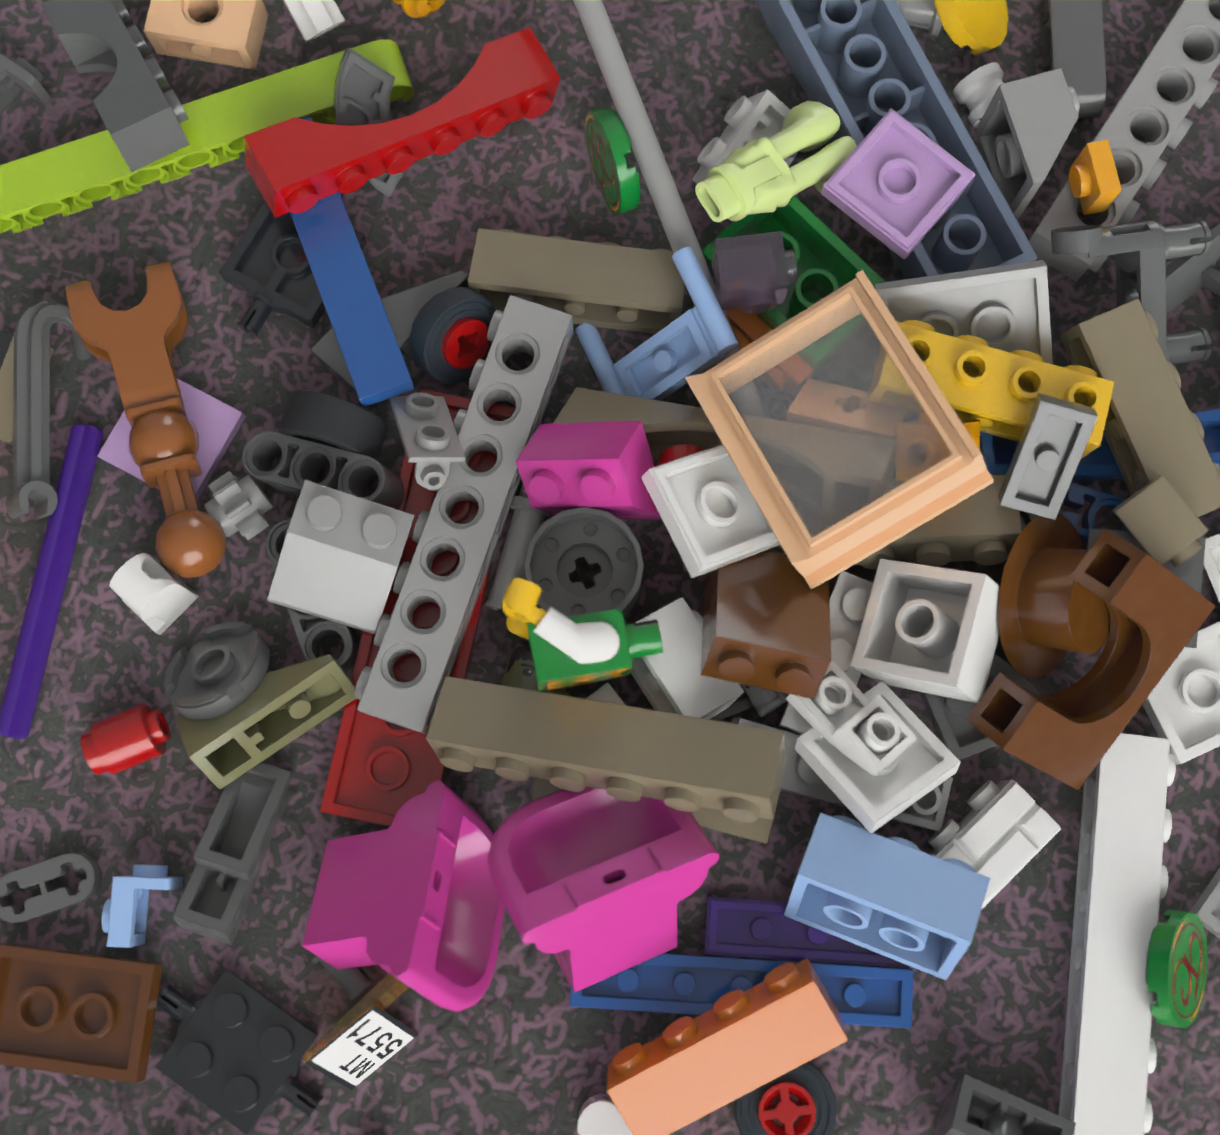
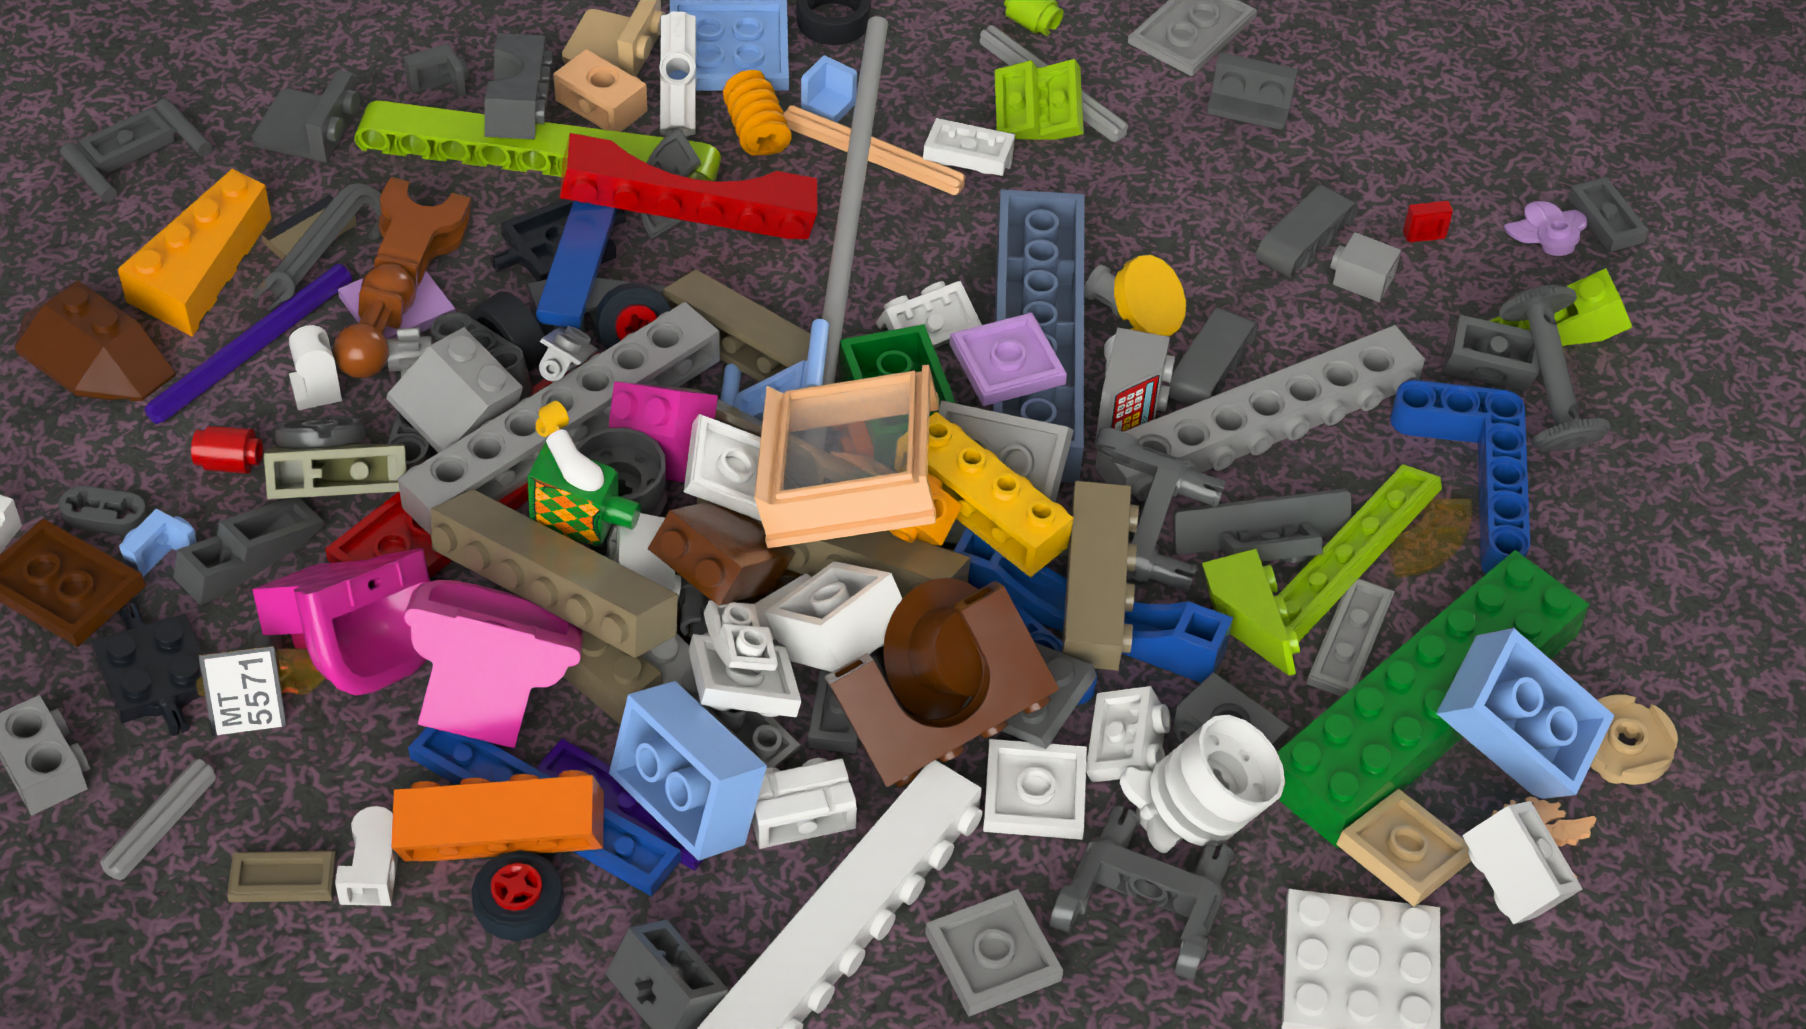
camera: 25 degrees right, 30 degrees down
(607, 152) = (818, 272): green tile -> none
(752, 271) = (860, 351): clear purple brick -> none
(757, 176) = (905, 306): yellowish green piece -> none
(1047, 456) = (988, 533): plate -> none
(1095, 177) = (1156, 417): light orange plate -> none
(1162, 522) = (1052, 617): dark tan brick -> none
(1177, 968) = (884, 939): green tile -> none

